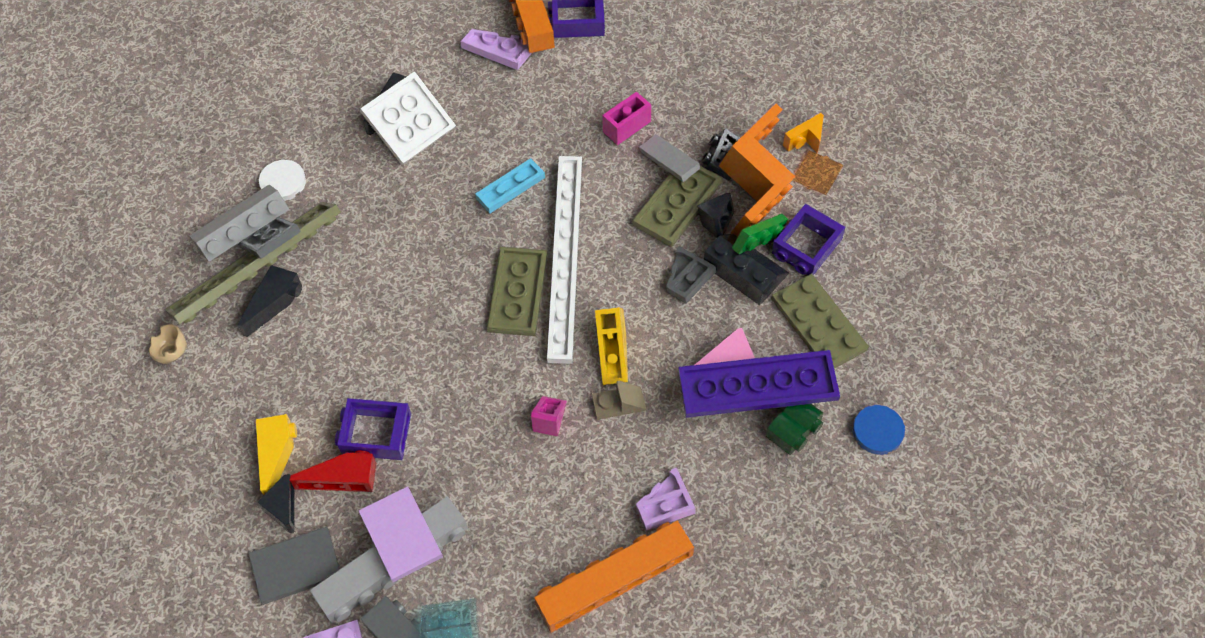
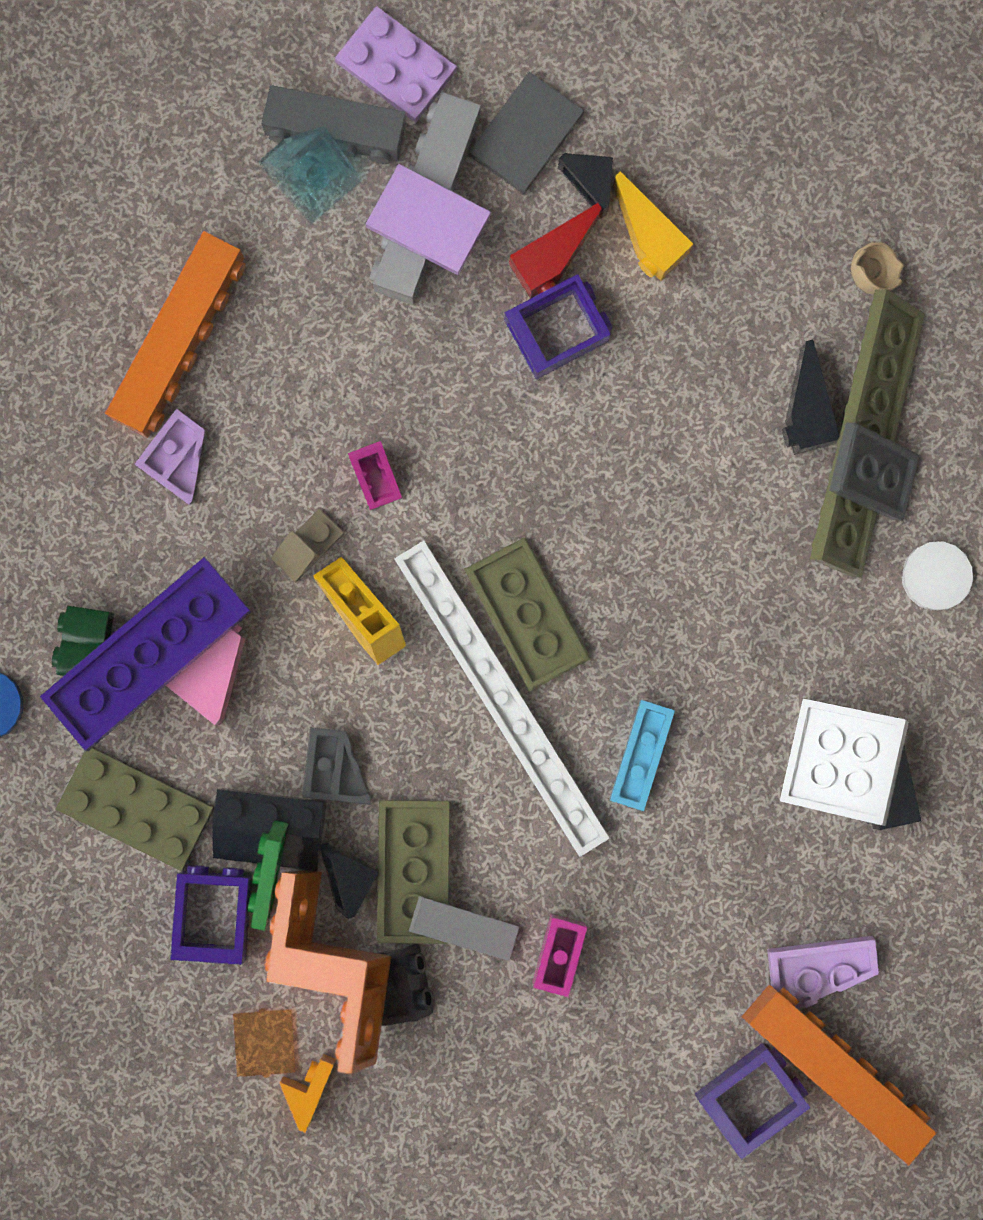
camera: 140 degrees right, 25 degrees up
(239, 222) = (930, 472): light grey brick -> none

